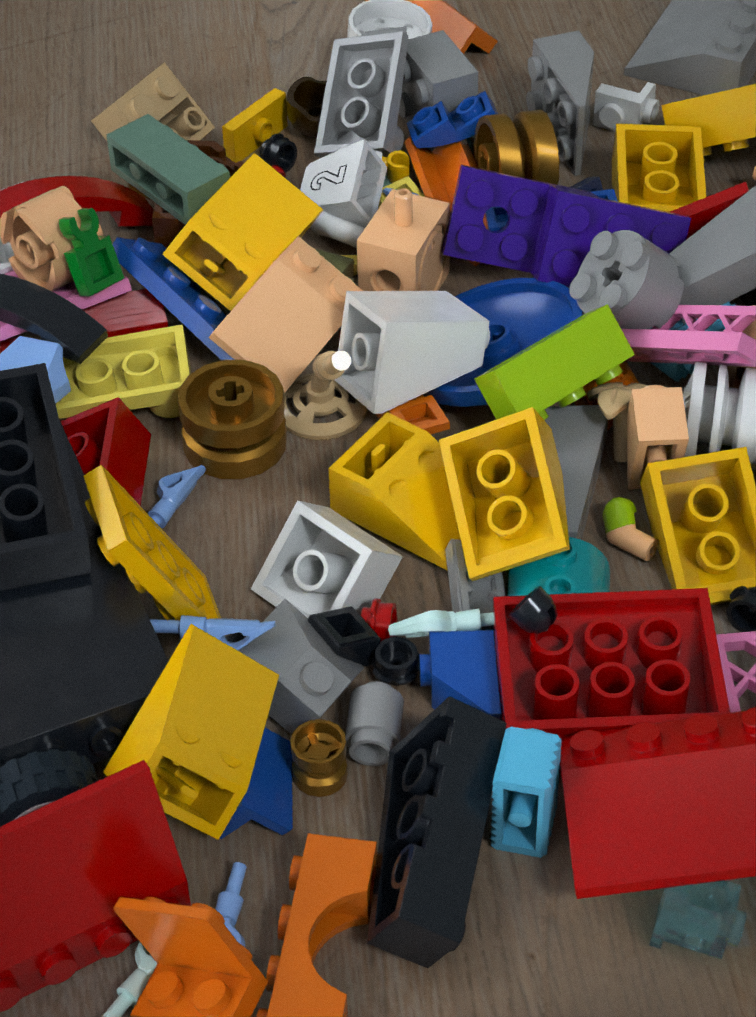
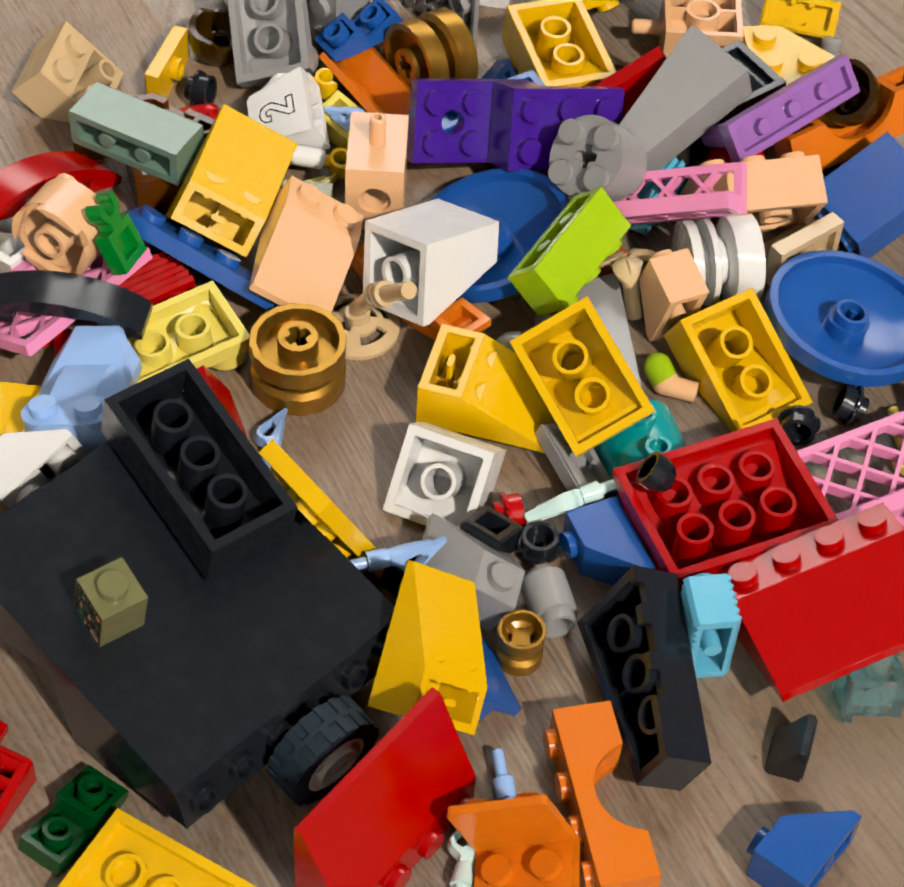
camera: 25 degrees left, 5 degrees up
(574, 959) = (791, 748): none -> black slope

